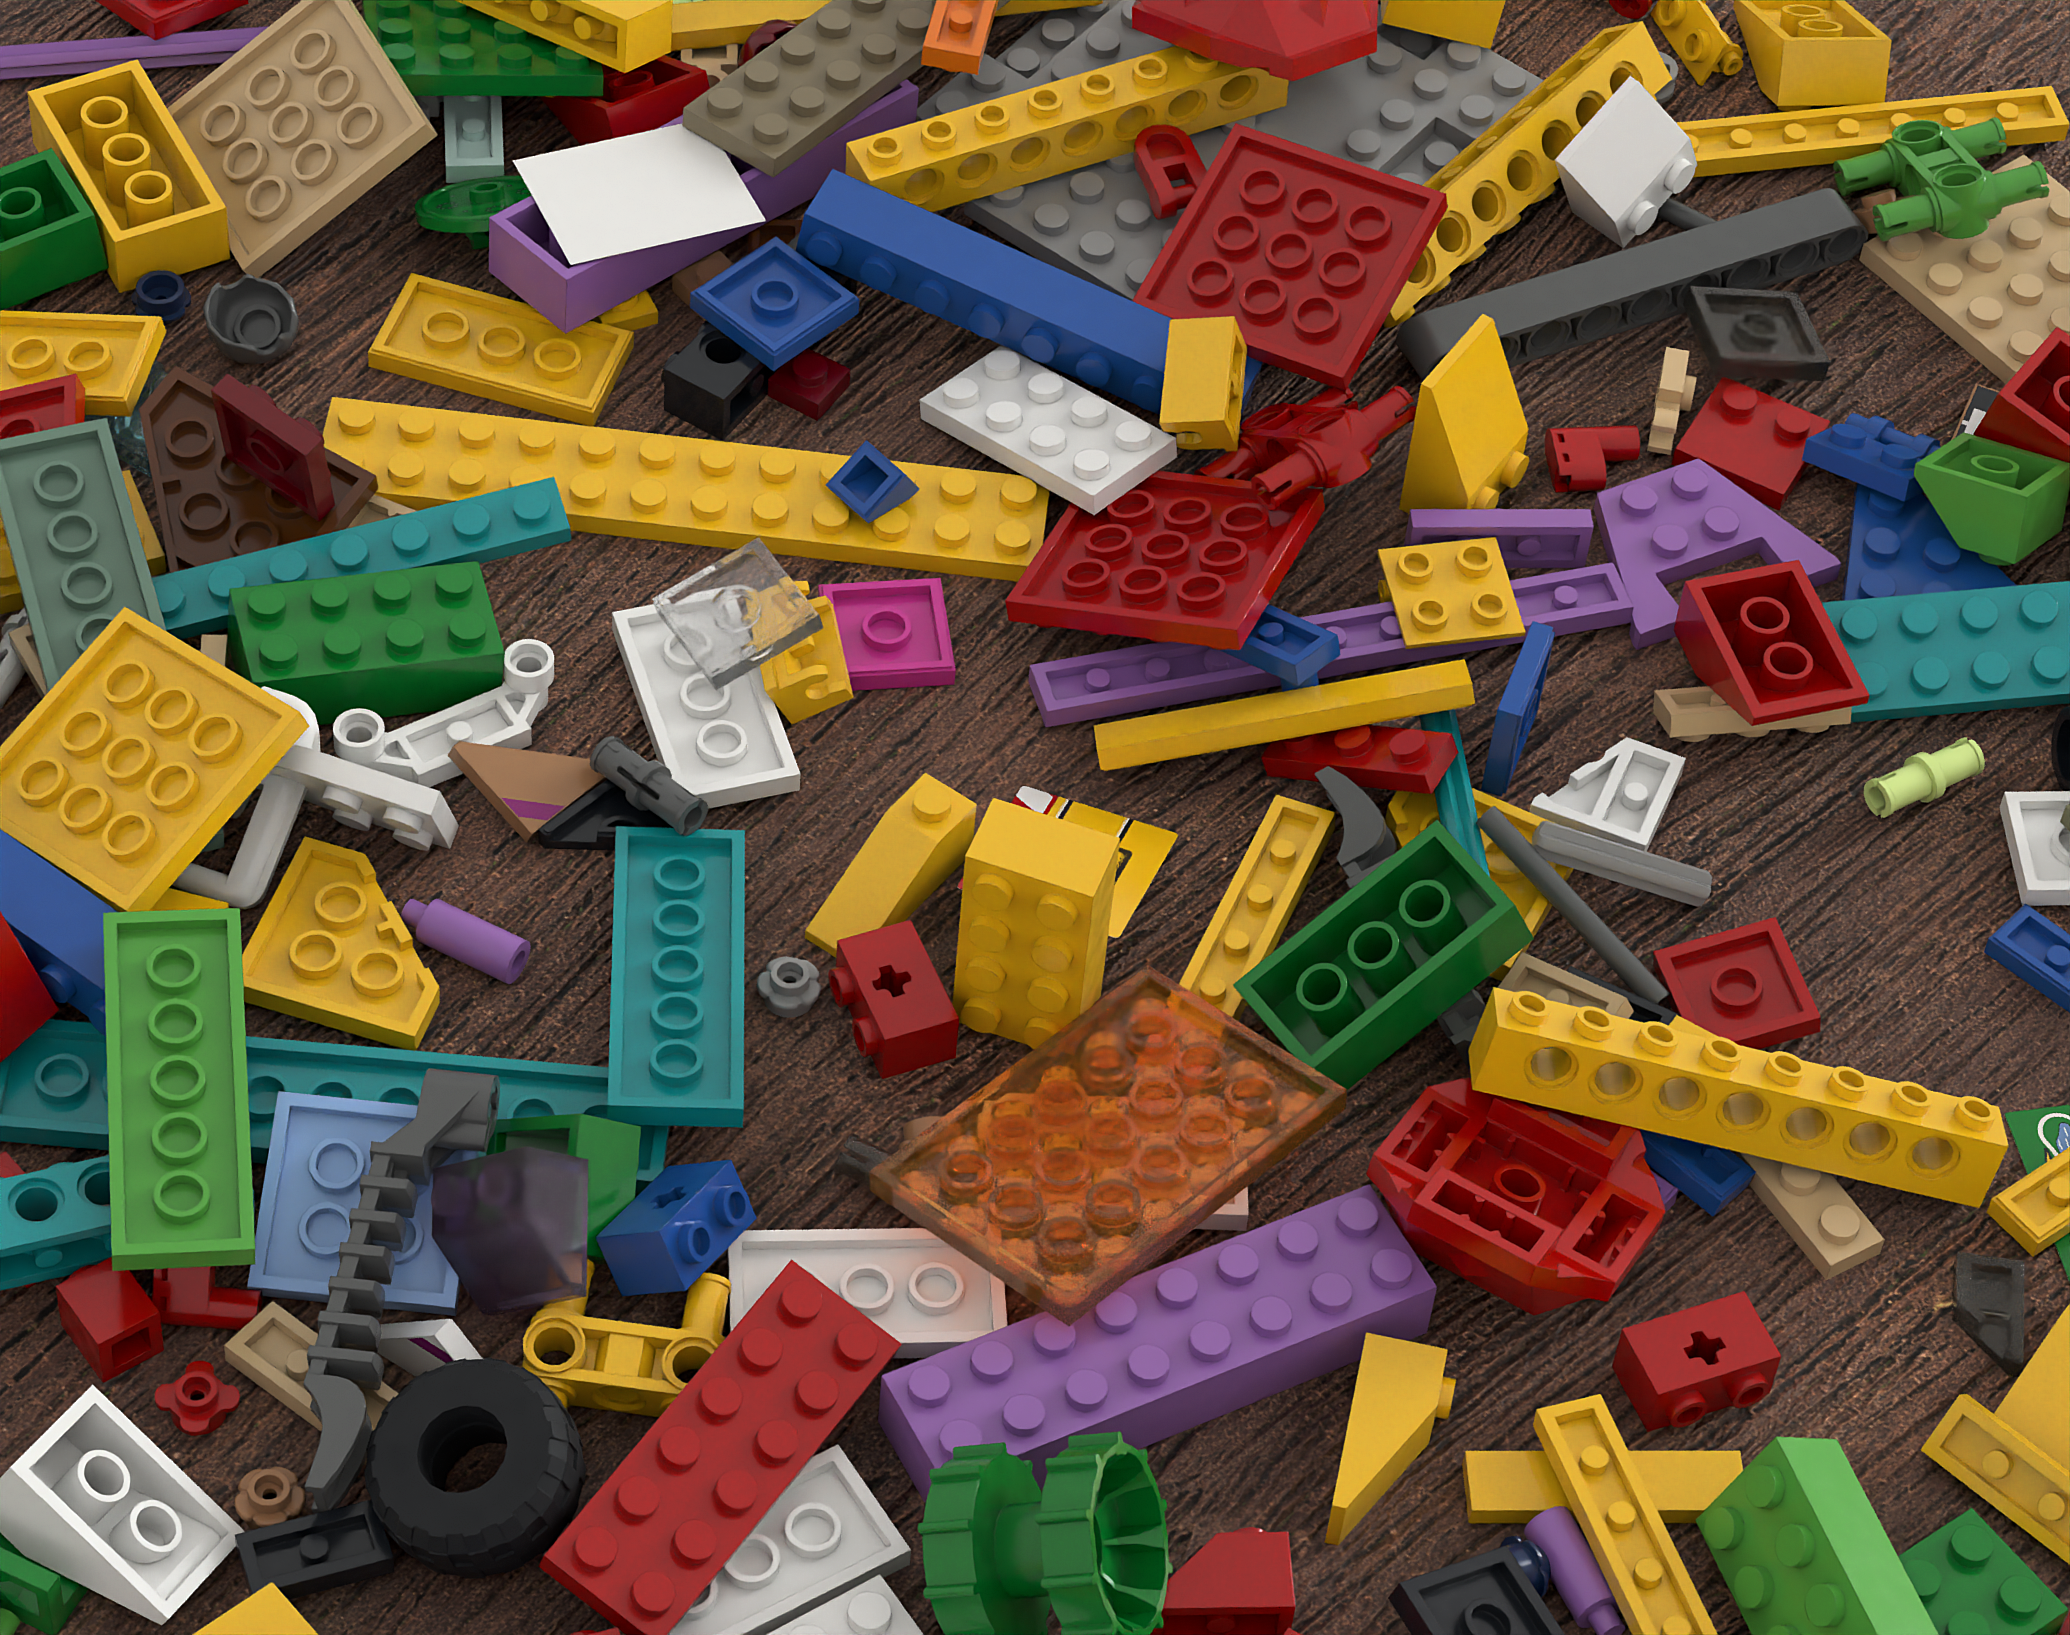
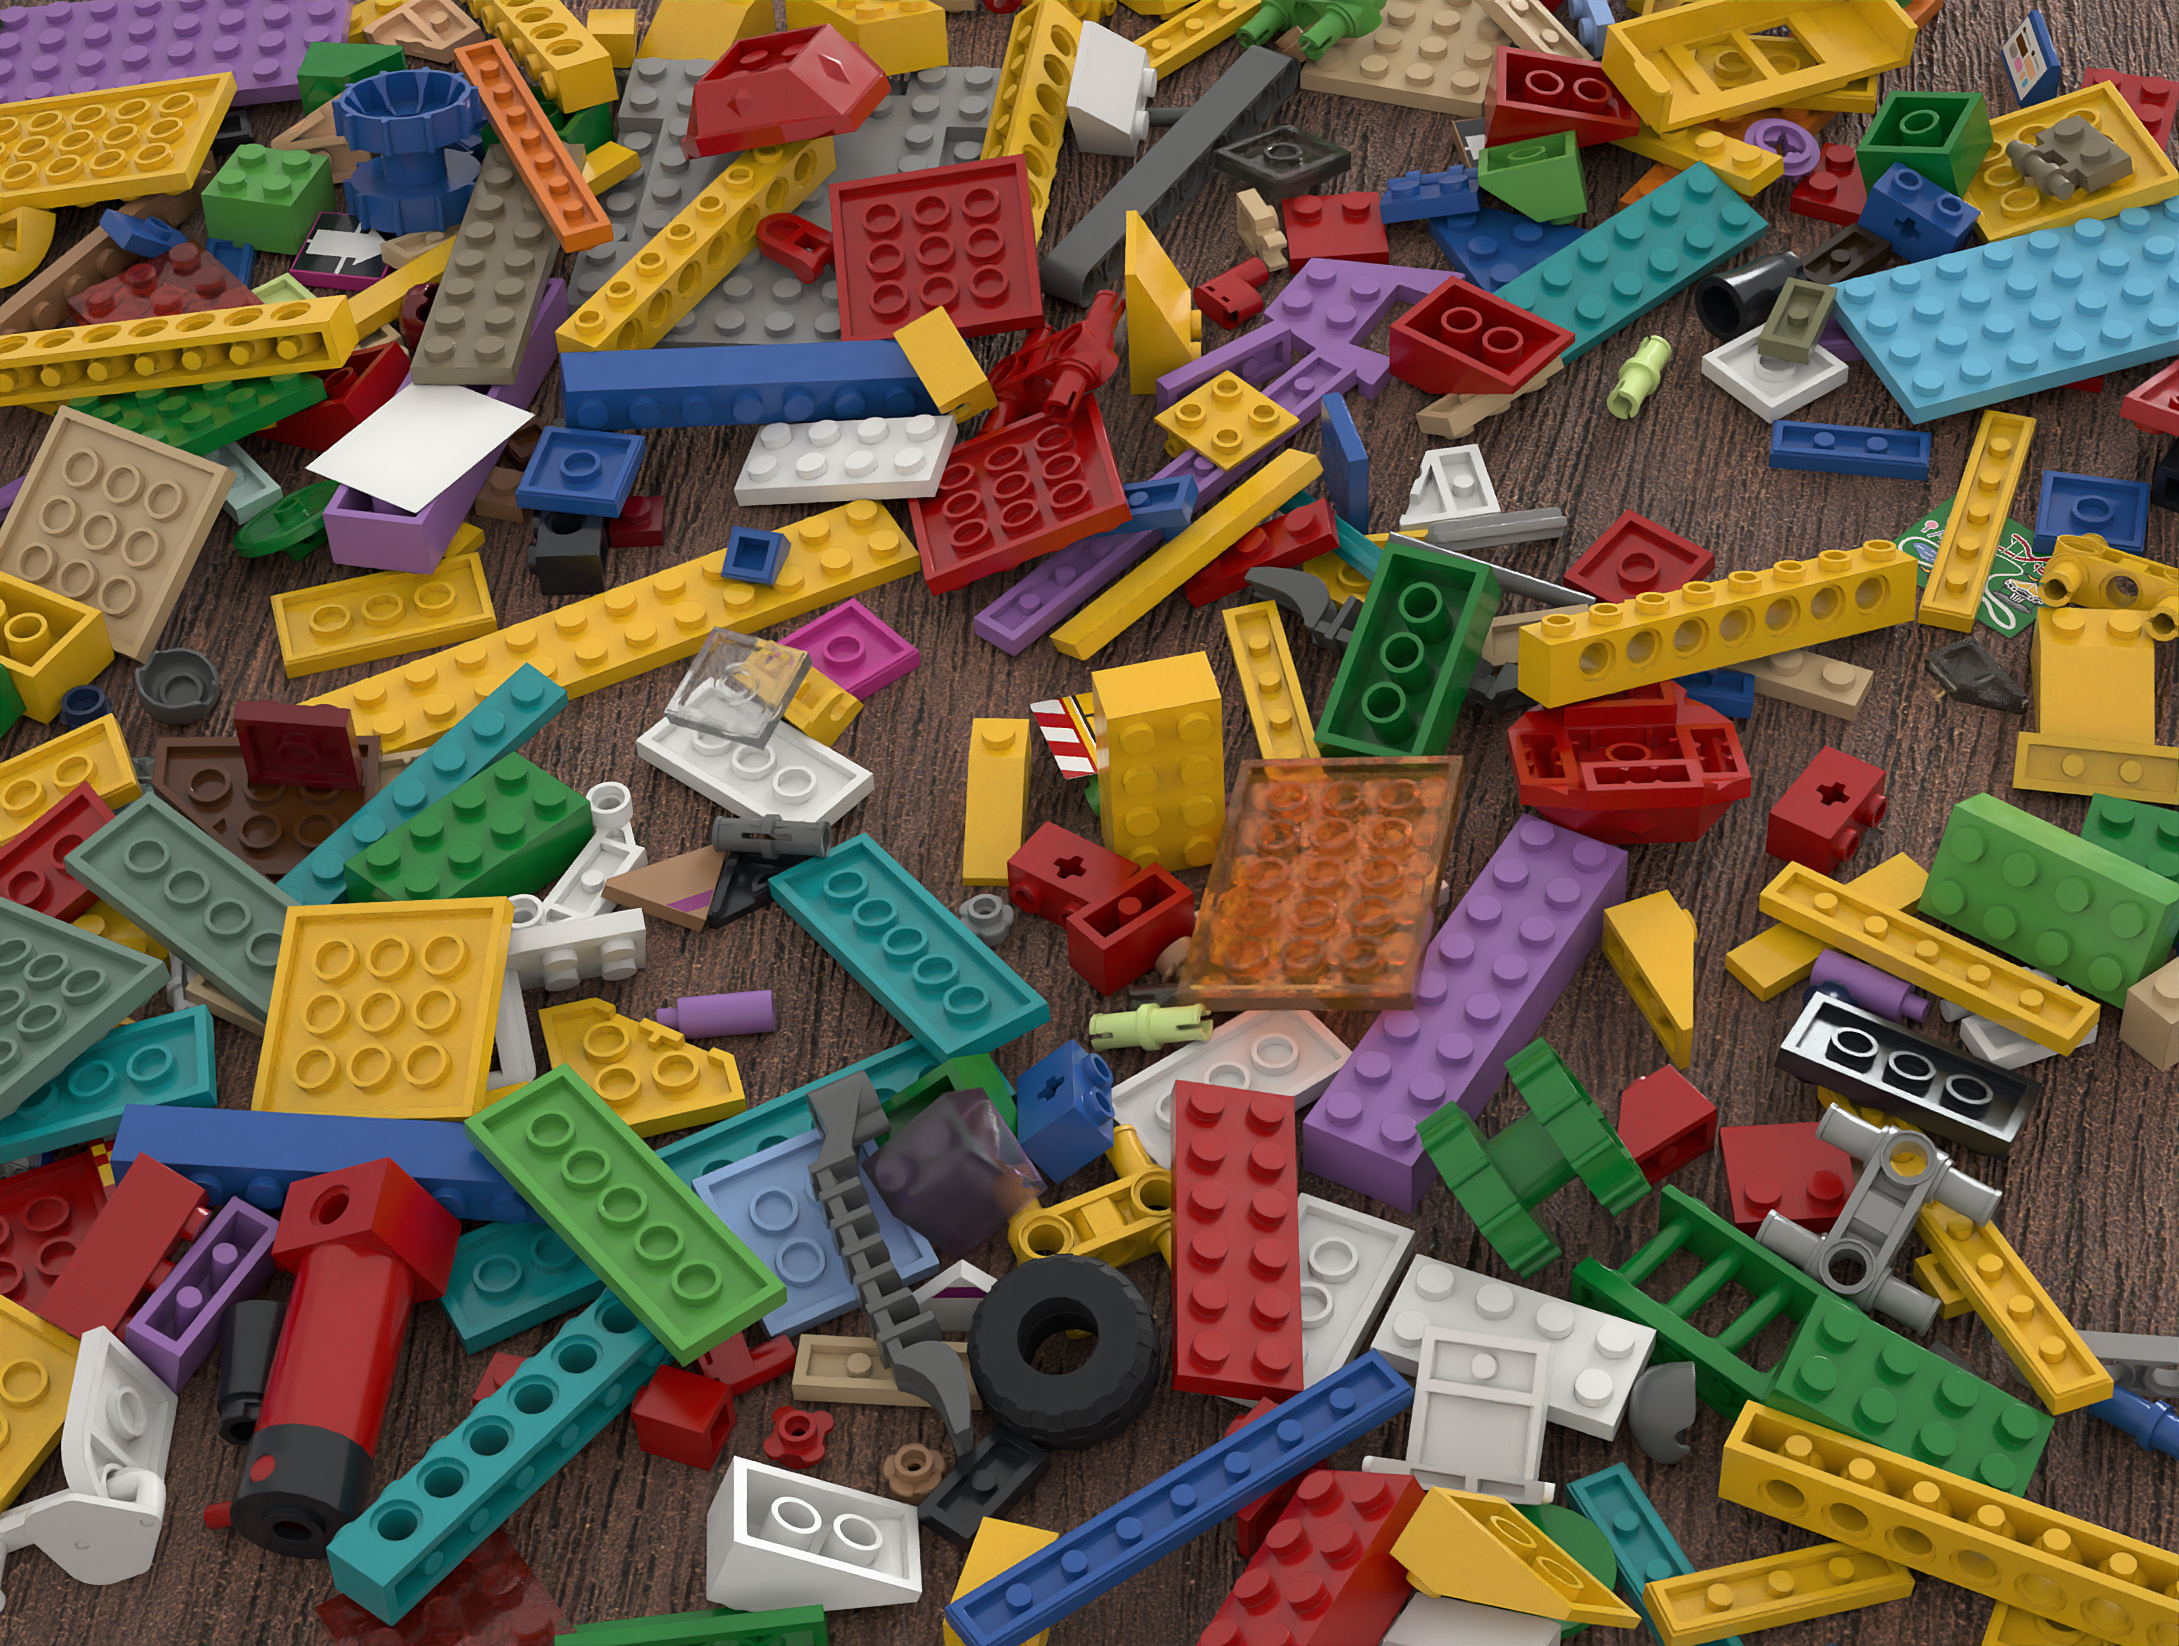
camera: 25 degrees left, 5 degrees down
(838, 1189) = (1150, 1027): none -> yellowish green pin
(897, 1076) = (1129, 928): none -> red brick

